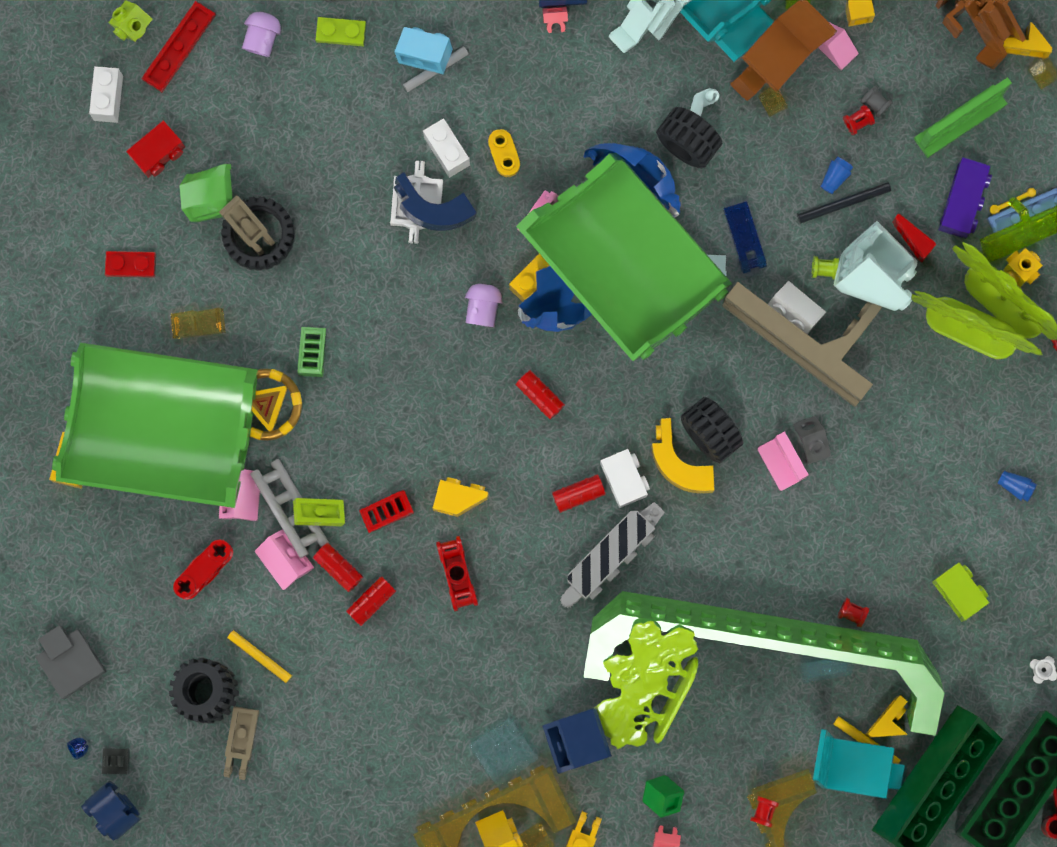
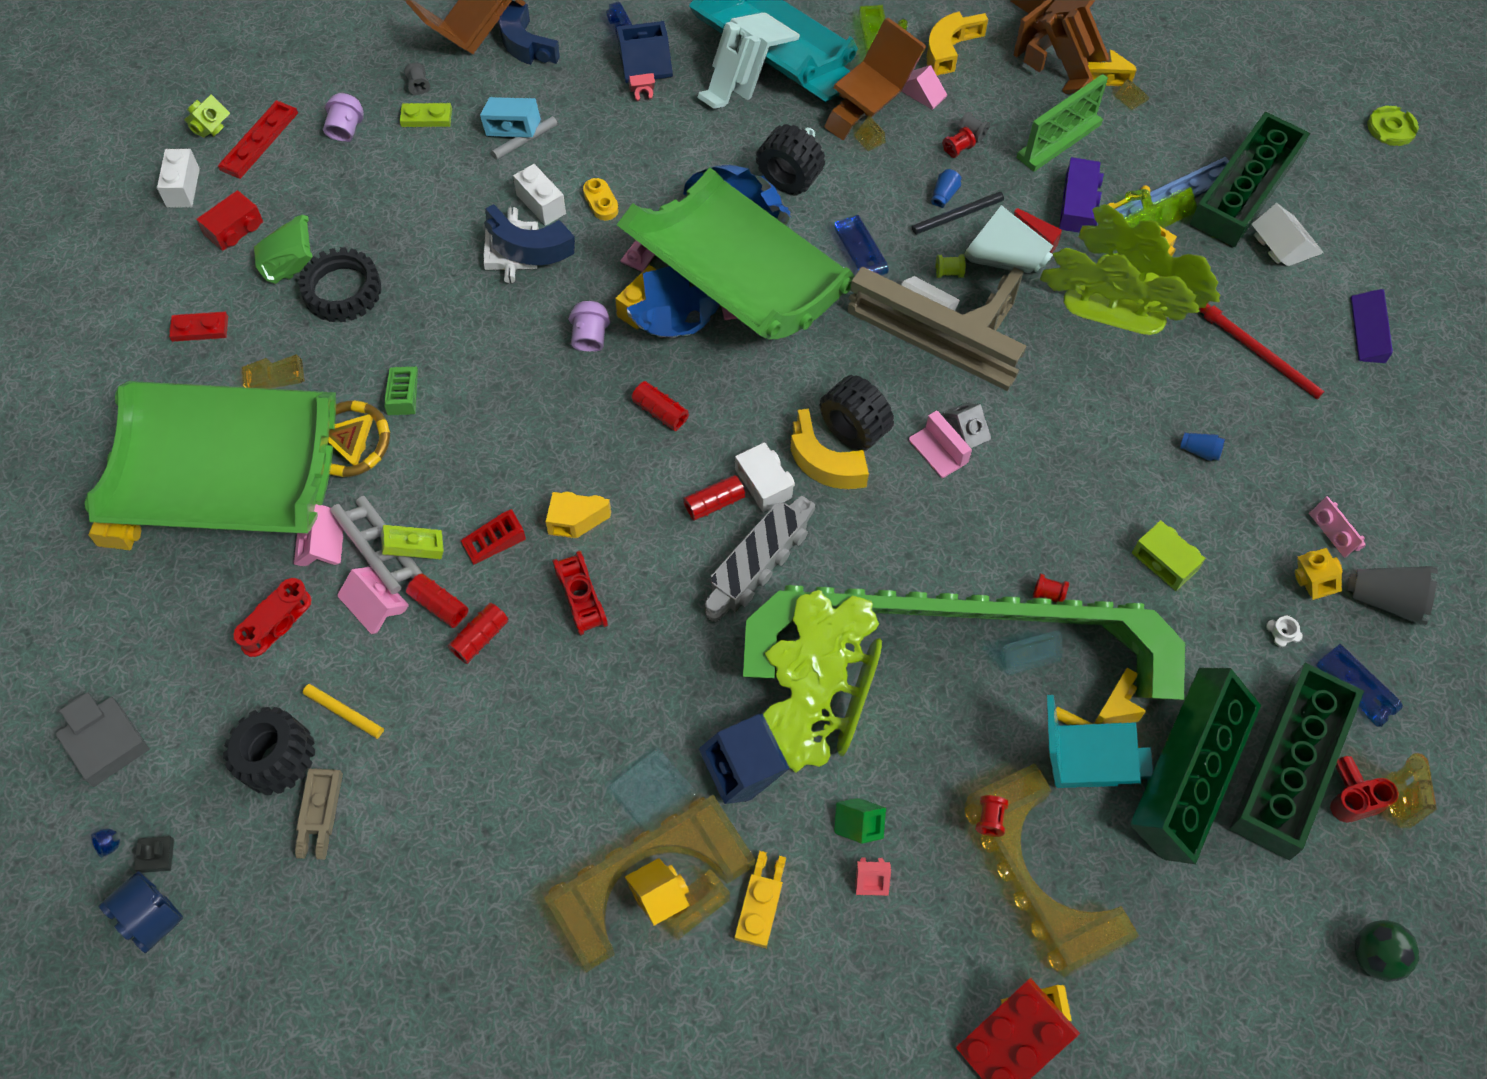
camera: 10 degrees left, 20 degrees down
(246, 224) = (324, 267): dark tan hinge -> none

